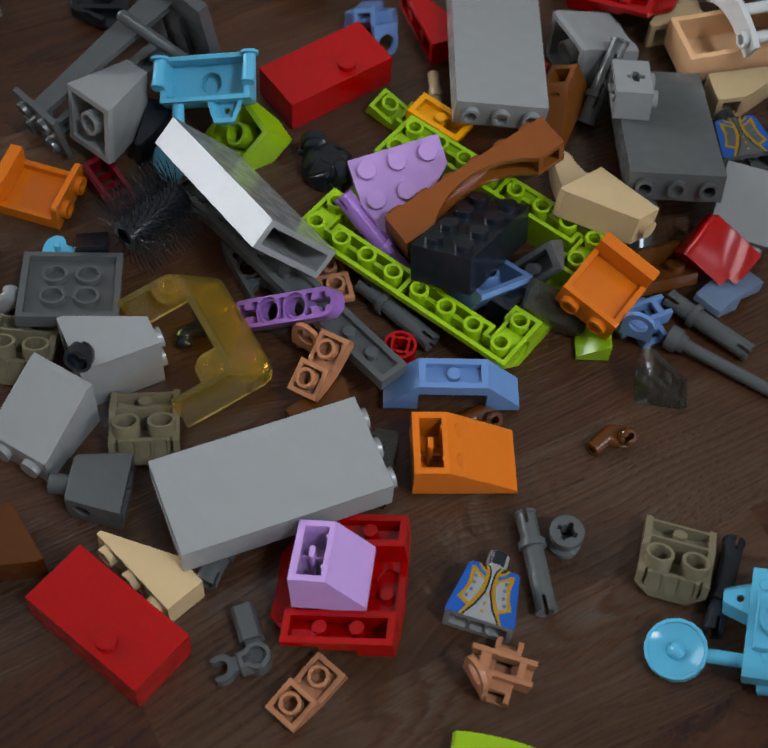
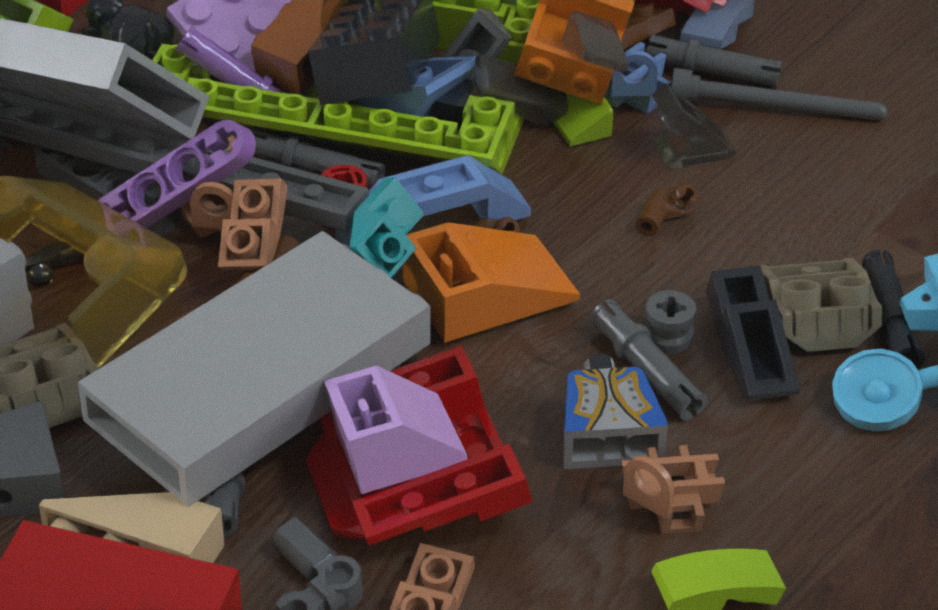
camera: 20 degrees left, 15 degrees down
(395, 402) = (382, 226): none -> teal slope
(614, 571) = (751, 333): none -> black slope
(615, 299) = (595, 41): none -> clear smoke slope

